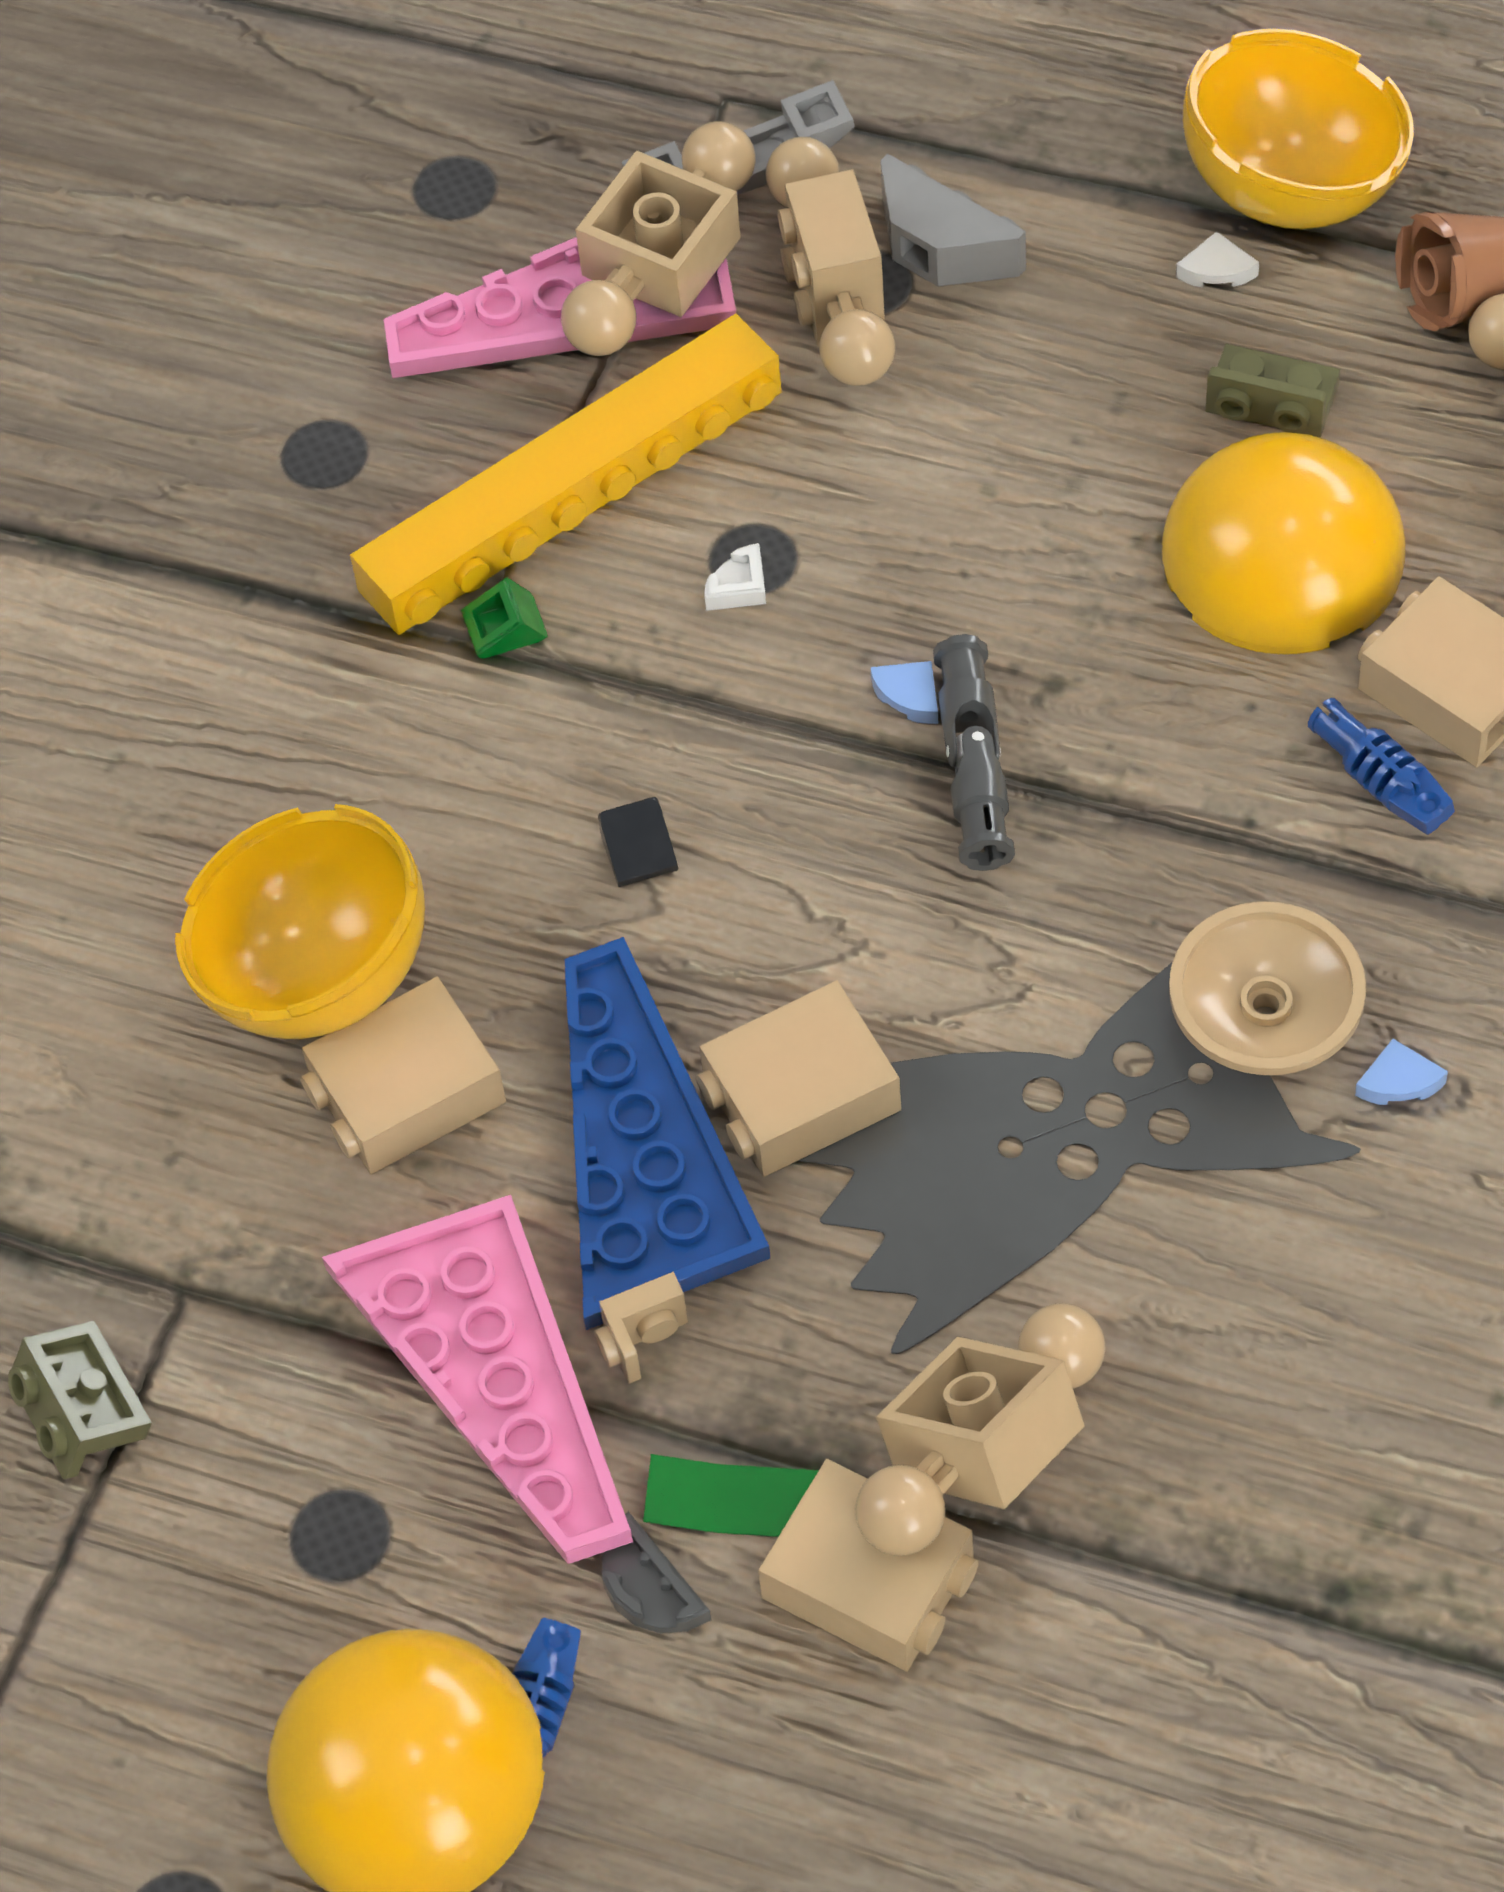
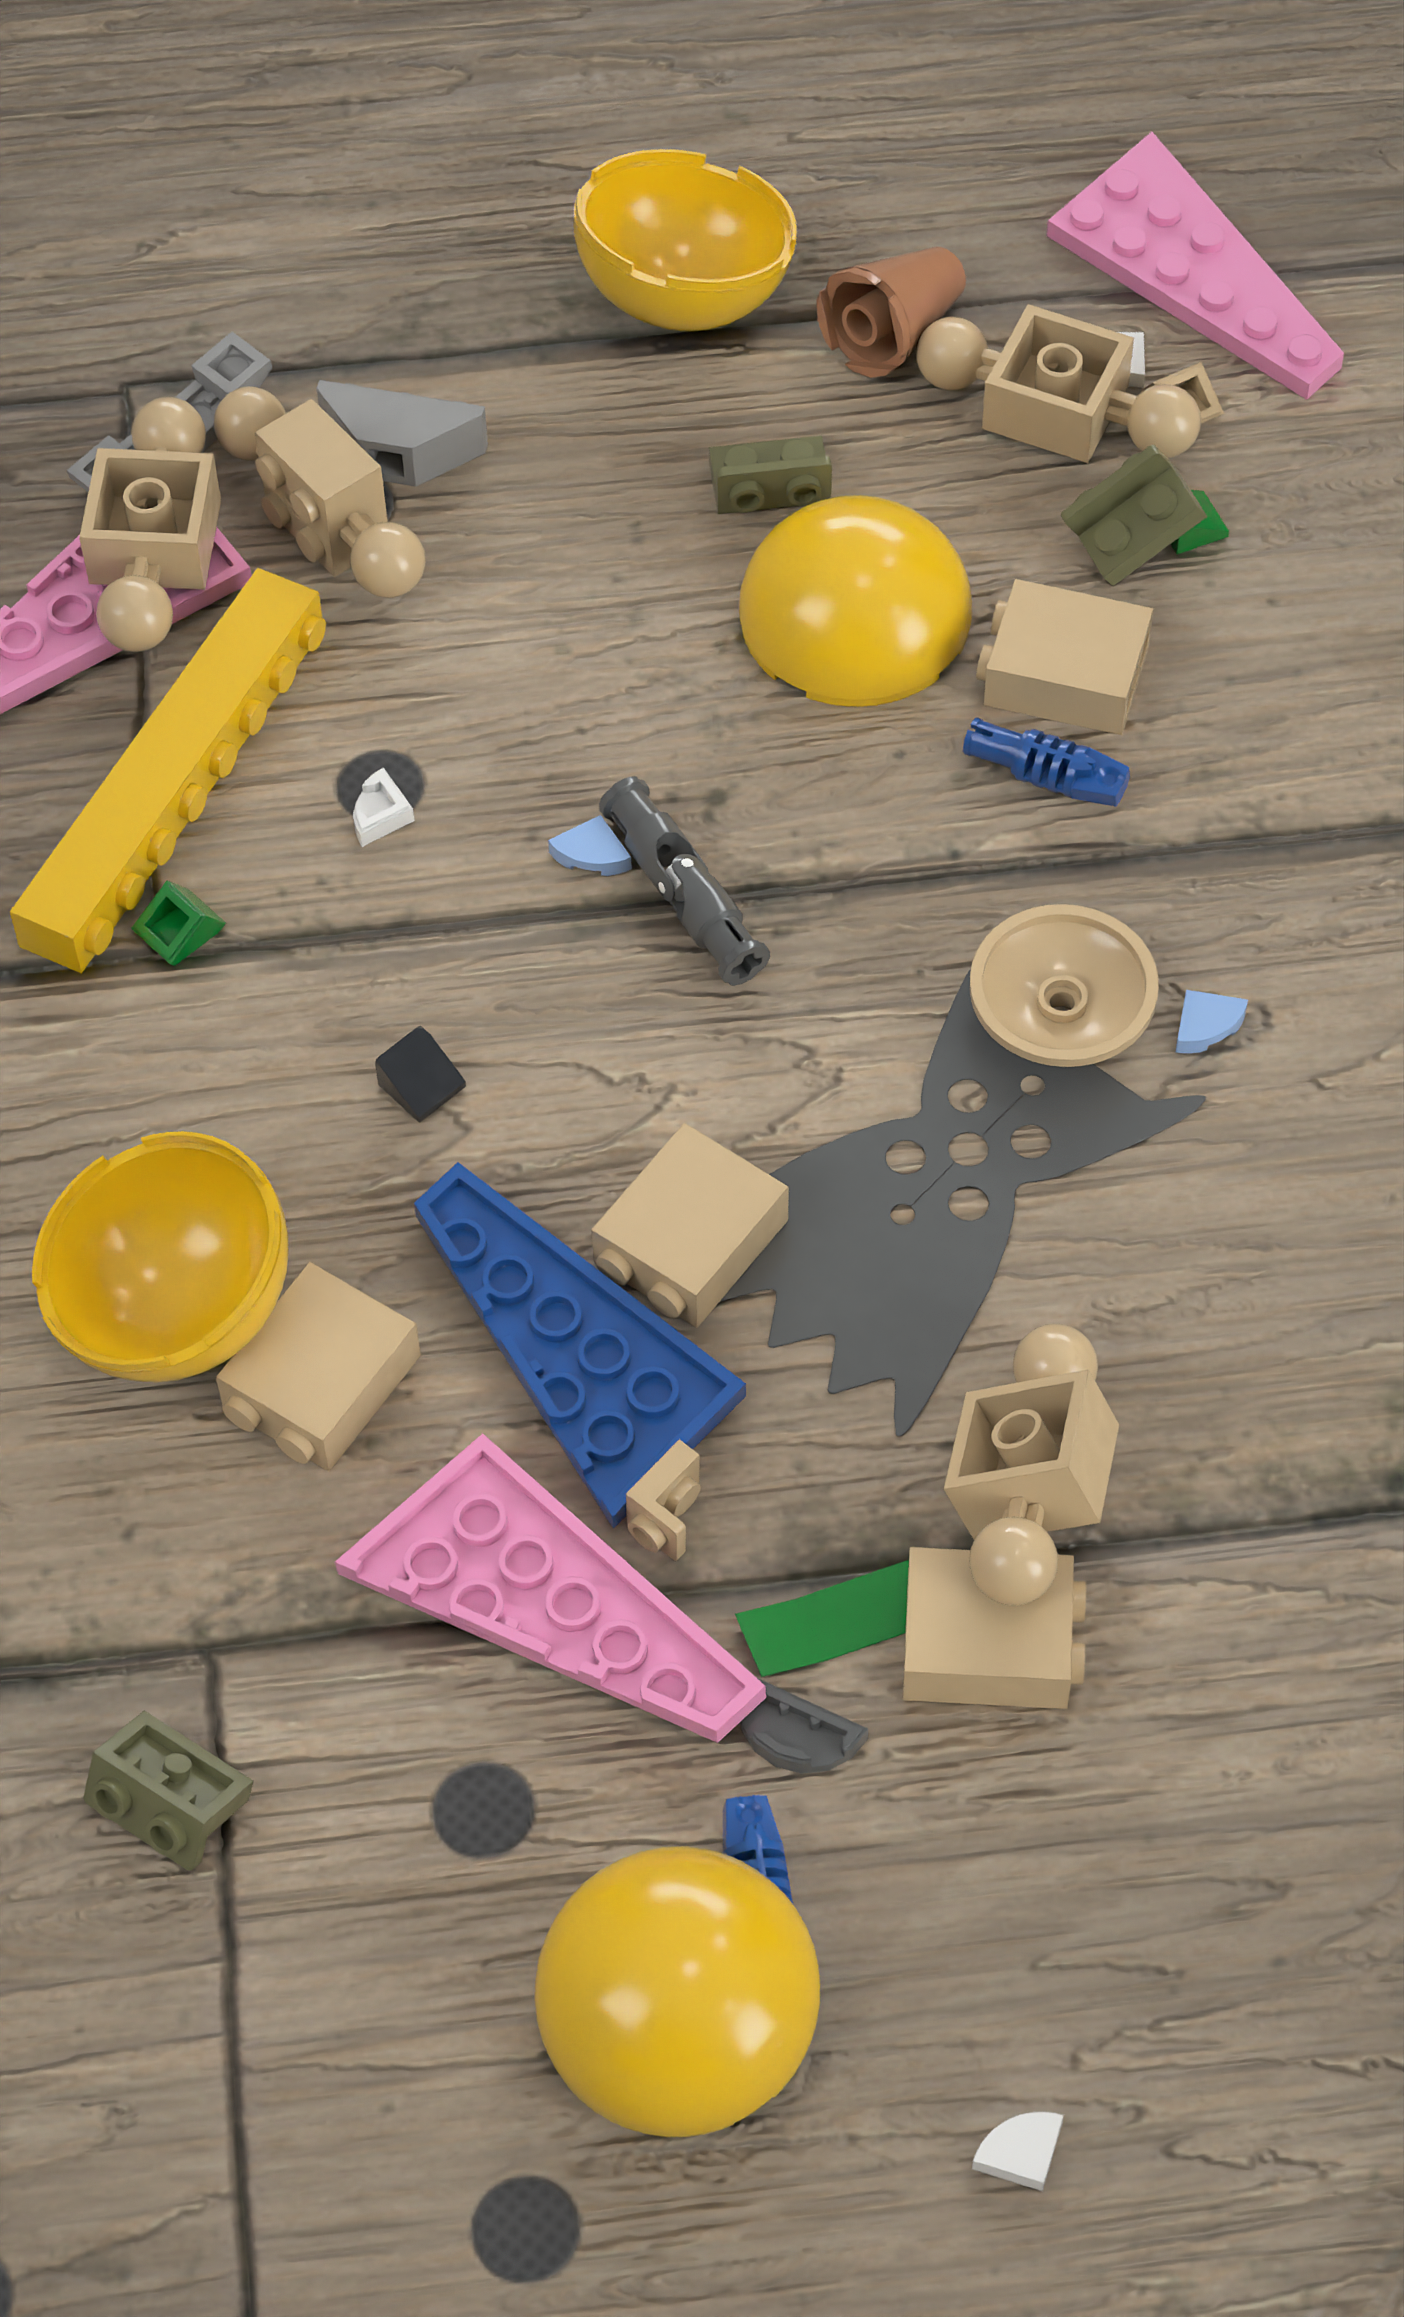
camera: 30 degrees left, 0 degrees up
(1217, 263) = (661, 381): white tile -> none

